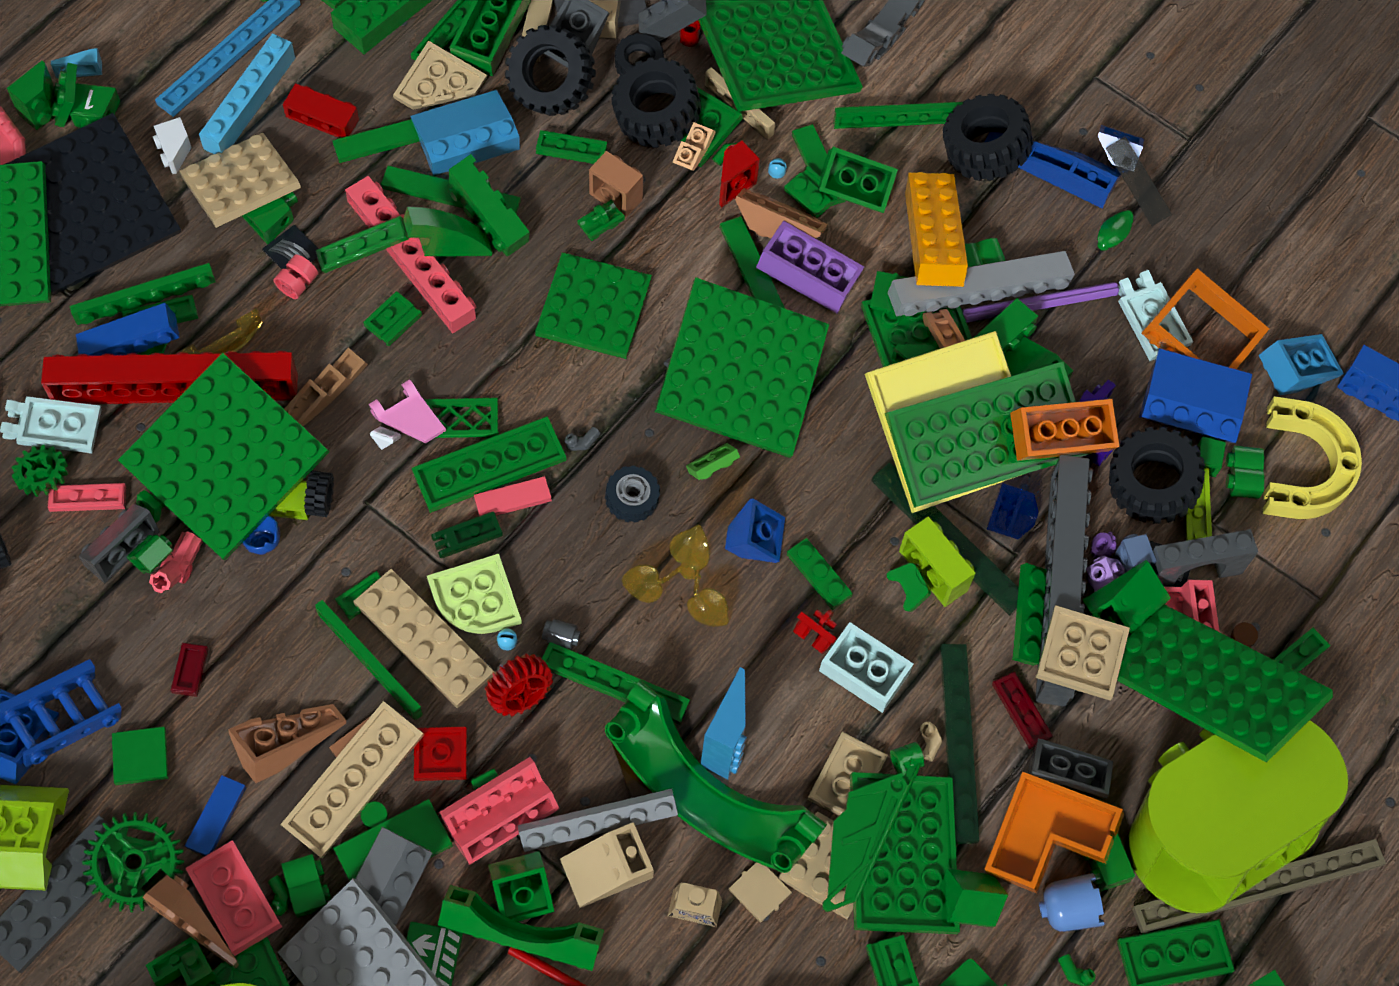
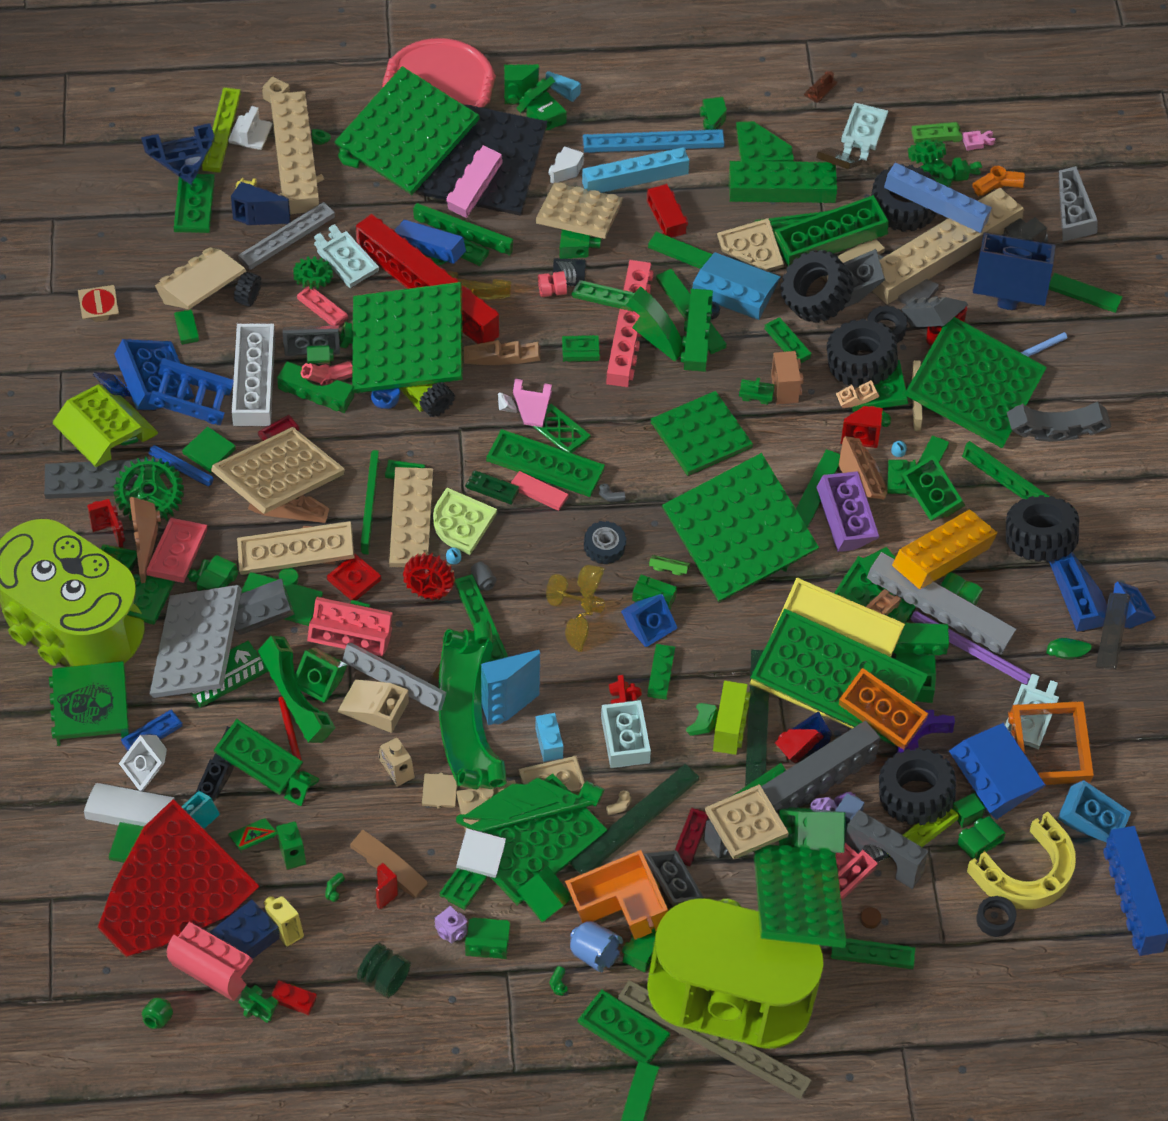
camera: 50 degrees right, 10 degrees down
(102, 634) = (253, 375): none -> white brick
(106, 235) = (474, 181): none -> bright pink brick
(113, 936) = (104, 515): none -> red bracket
(130, 801) = (181, 466): none -> blue axle
(209, 581) = (335, 395): none -> green arch
(215, 816) = (213, 508): blue tile -> none
(247, 716) = (278, 470): none -> tan plate
(727, 502) = (649, 587): none -> green brick
(802, 737) = (549, 737): none -> medium azure brick
(882, 919) = (480, 853): none -> white tile
(1014, 530) = (798, 742): none -> red slope
(1345, 519) = (1001, 903): none -> black tyre

